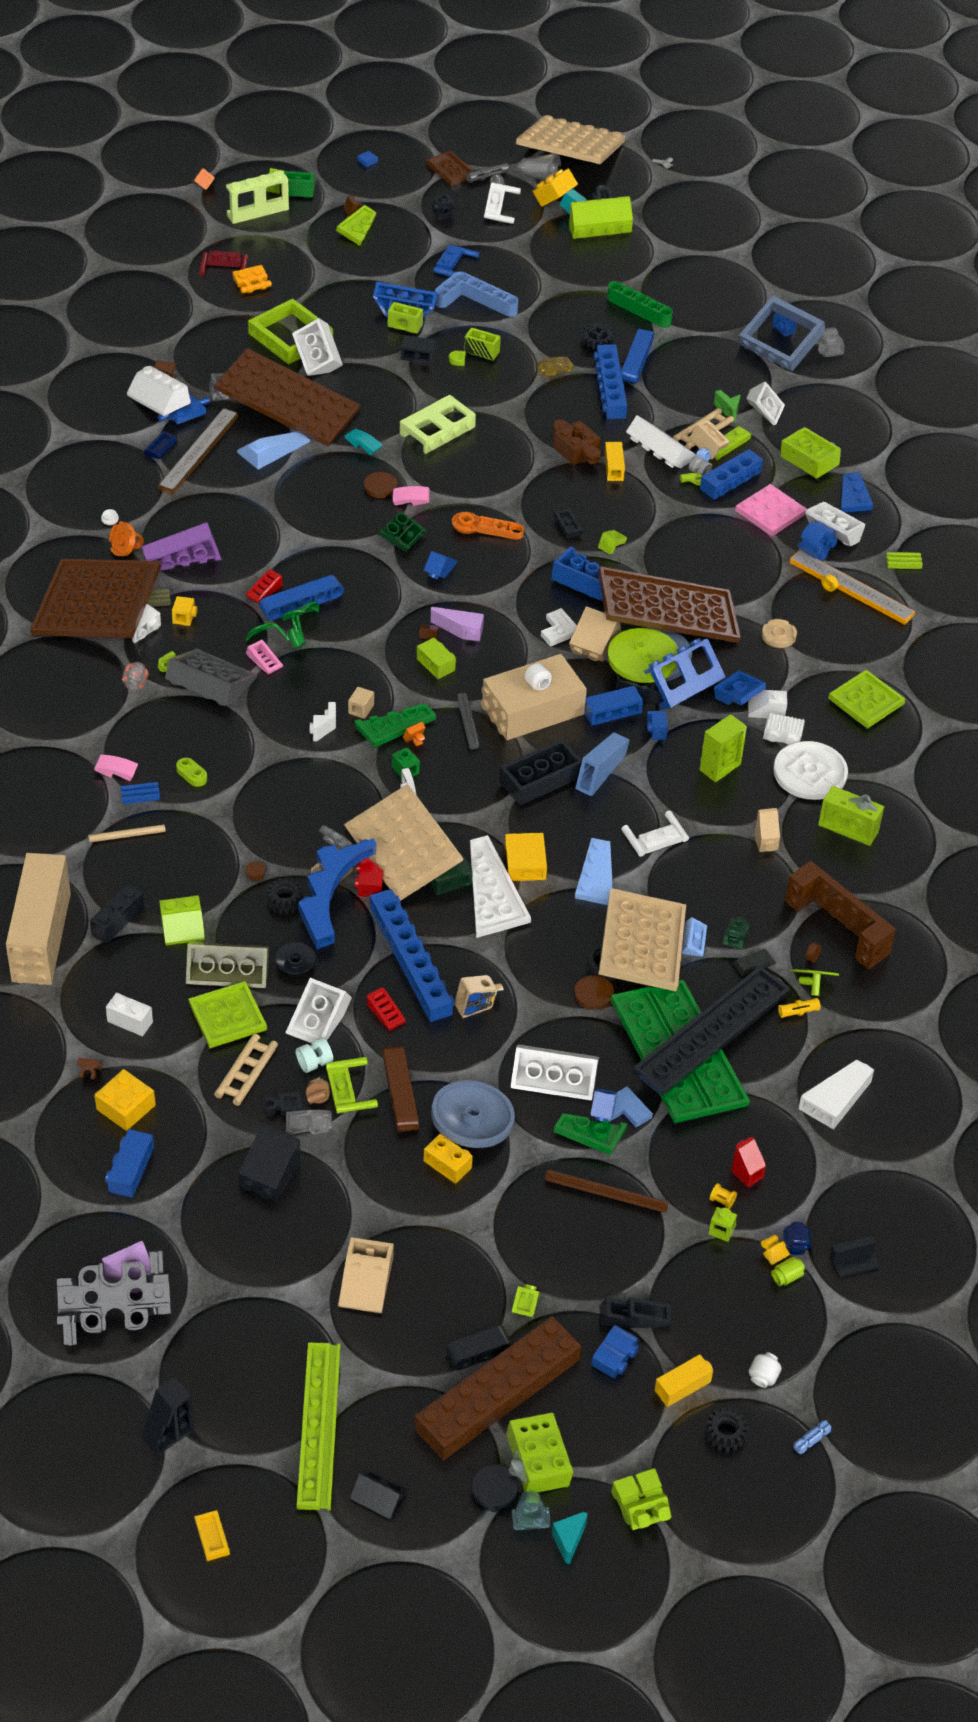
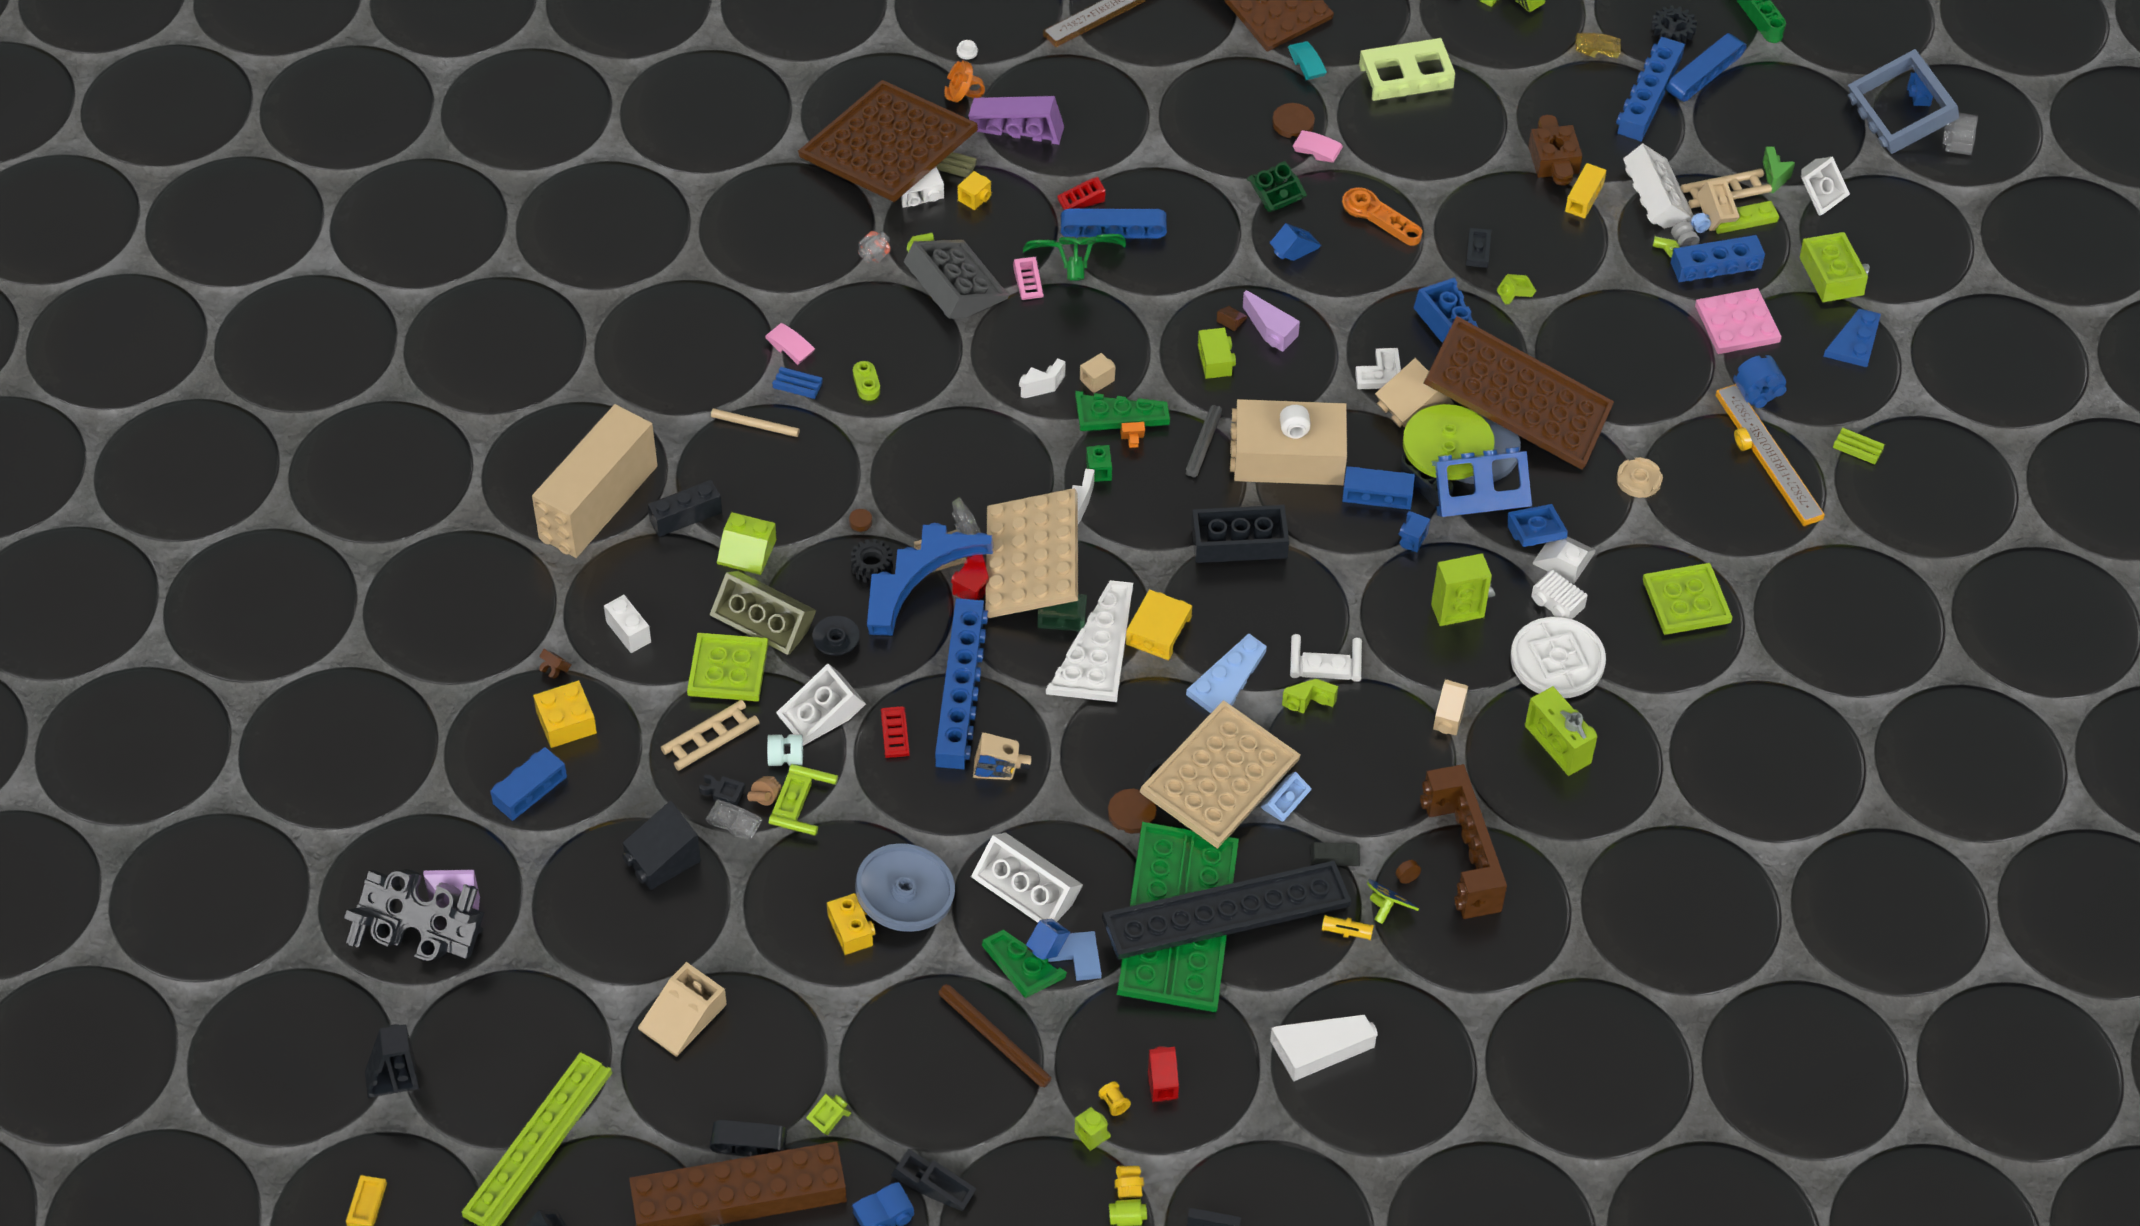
camera: 30 degrees right, 5 degrees up
(272, 448) = (1195, 31): light blue wedge -> none
(400, 1089) = (851, 826): reddish brown beam -> none
(600, 763) = (1317, 549): medium blue slope -> none
(666, 857) = (1298, 696): none -> lime slope
(737, 928) = (1336, 811): clear green brick -> none
(797, 1238) = (1161, 1181): clear blue head -> none
(846, 527) = (1799, 367): white slope -> none

